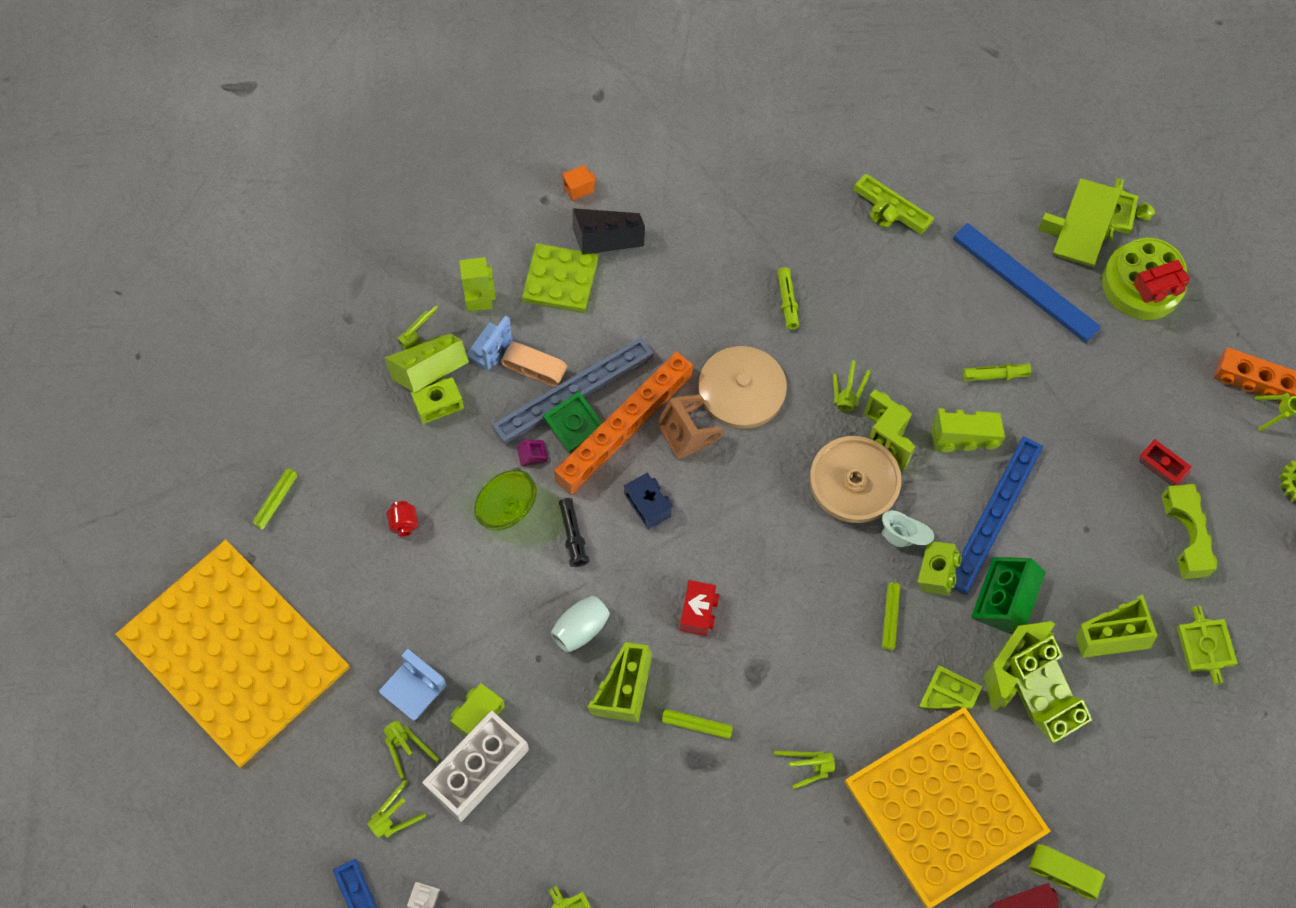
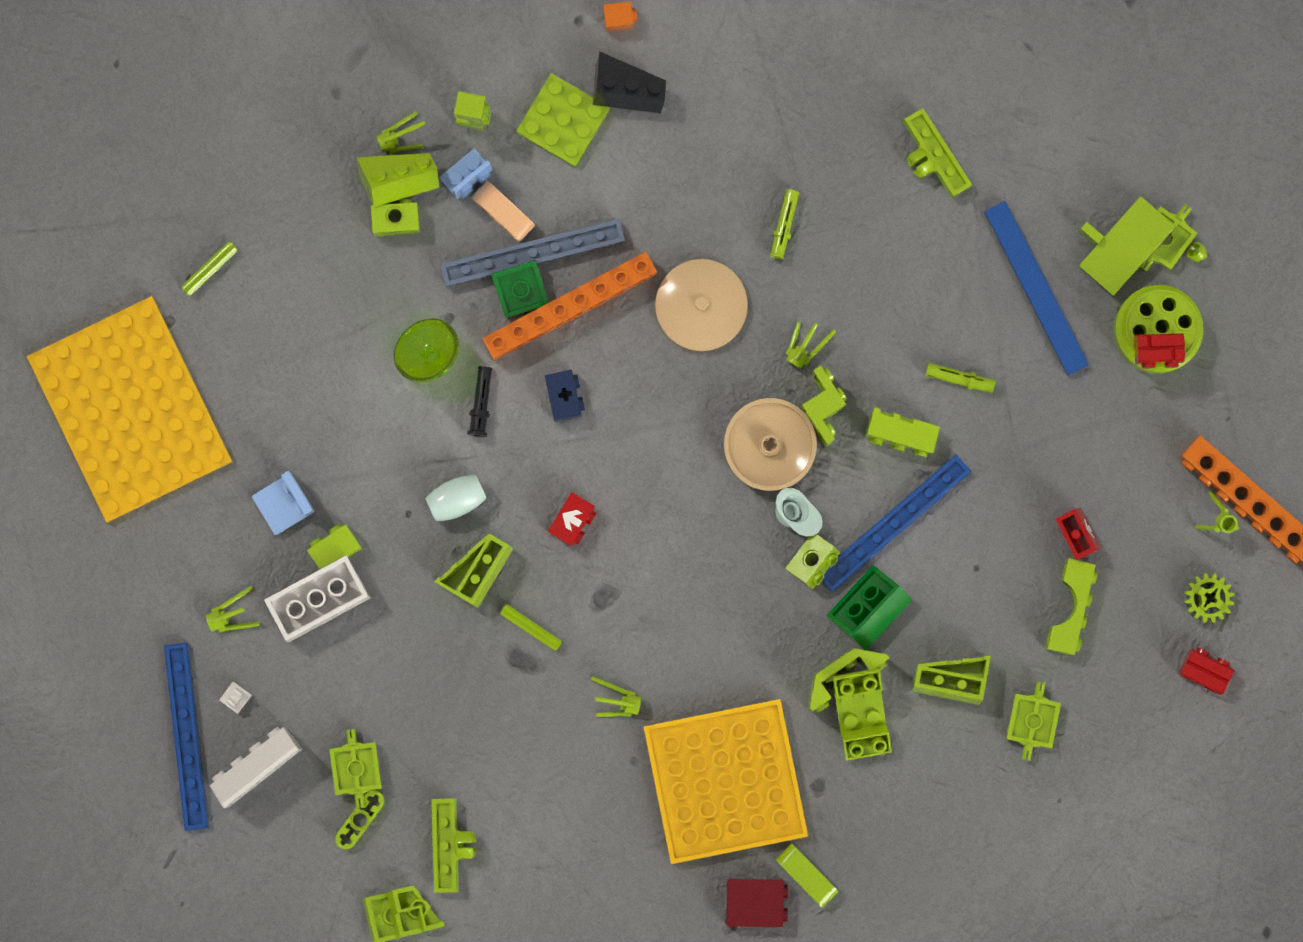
camera: 15 degrees right, 20 degrees up
(397, 736) = (255, 544): lime plant -> none
(402, 518) = (323, 333): red head -> none
(532, 452) = (470, 304): magenta slope -> none
(680, 429) = (618, 333): medium nougat hose -> none
(891, 616) = (750, 589): lime axle -> none
(949, 691) = (774, 679): lime wing -> none

